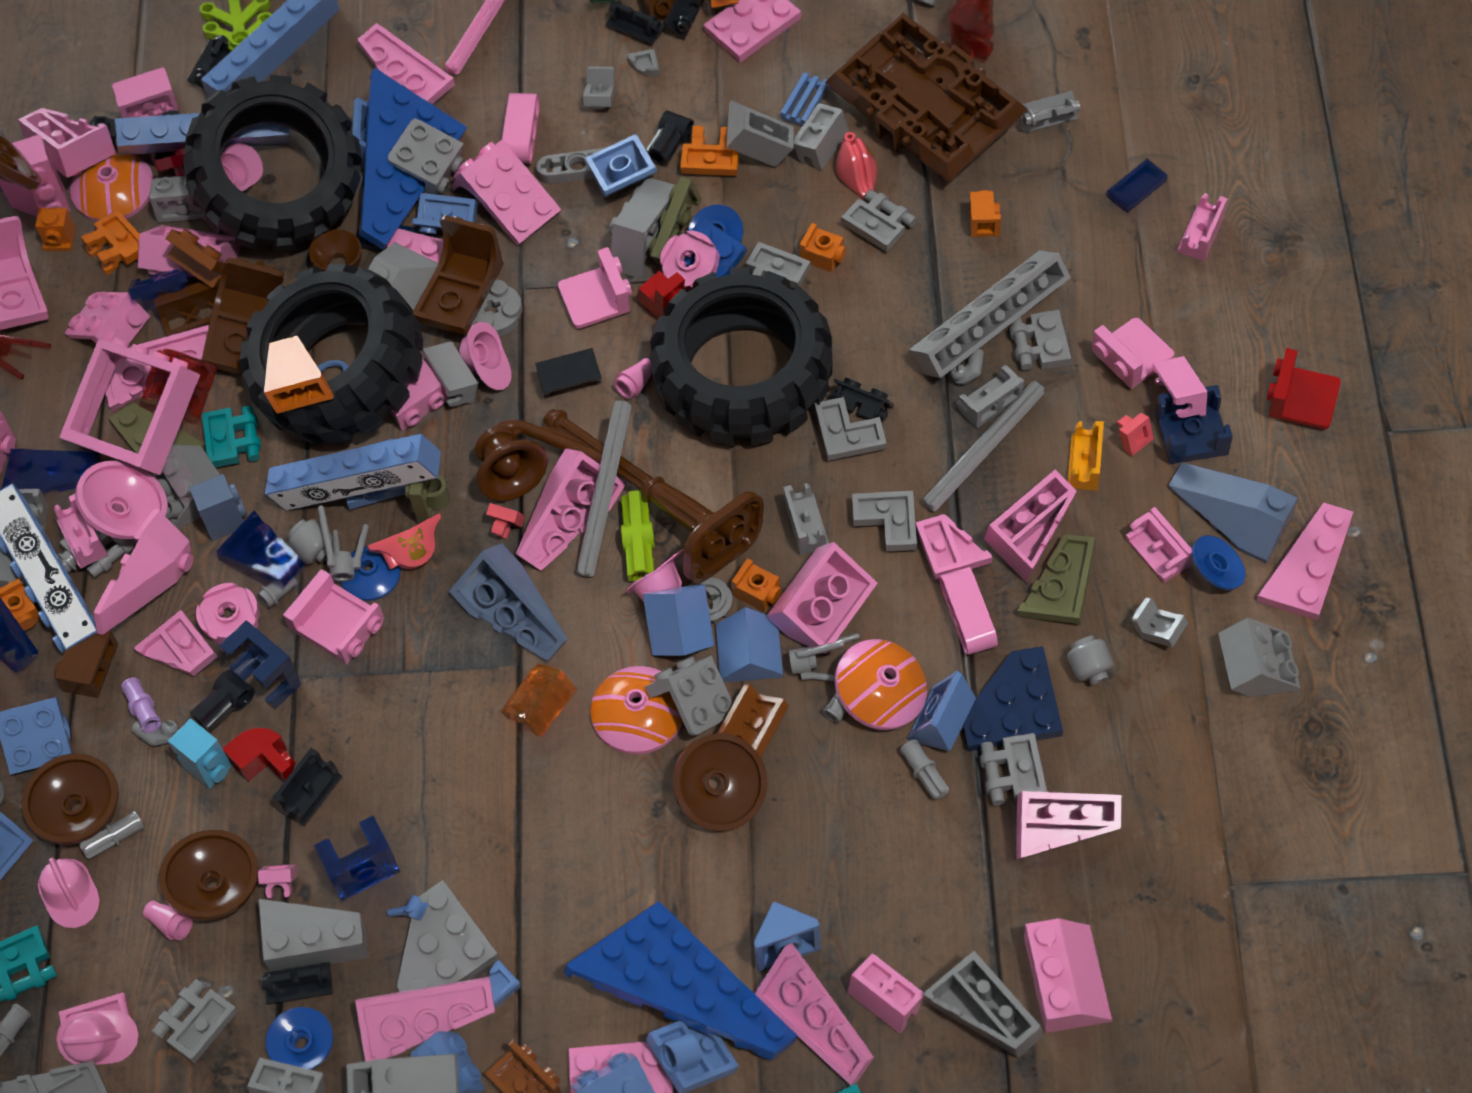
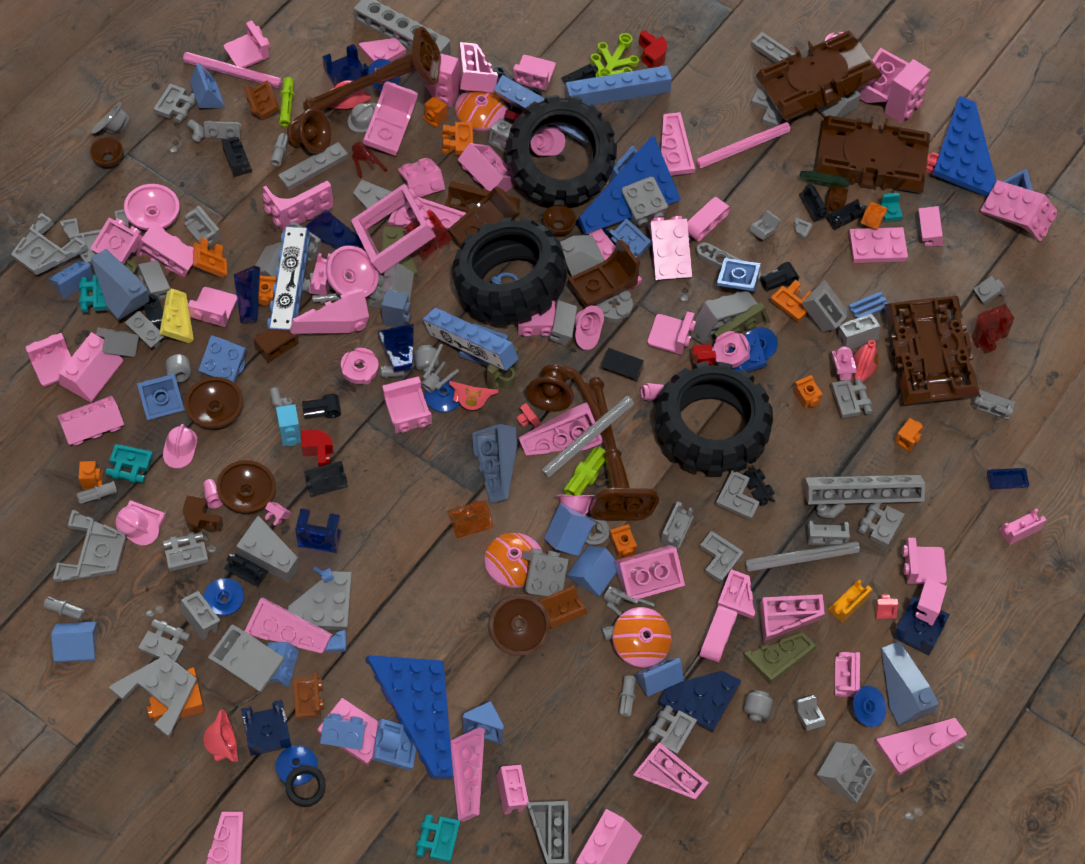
camera: 30 degrees right, 0 degrees up
(55, 390) = (369, 194): none -> light grey wing
(111, 835) = (219, 434): light grey axle -> none
(141, 705) = (283, 381): lavender pin -> none
(170, 280) = (466, 177): clear blue wing -> none
(174, 967) = (197, 518): none -> reddish brown brick
(178, 646) = (324, 364): bright pink wing -> none
(195, 258) = (485, 173): dark orange bracket -> none
(221, 438) = (427, 276): teal plate -> none
(262, 660) = (352, 402): dark blue panel -> none
(293, 377) = (476, 269): slope -> none
(771, 259) = (777, 385): light grey plate -> none
(837, 182) = (844, 363): none -> bright pink hips
(1302, 394) = (995, 652): red bracket -> none

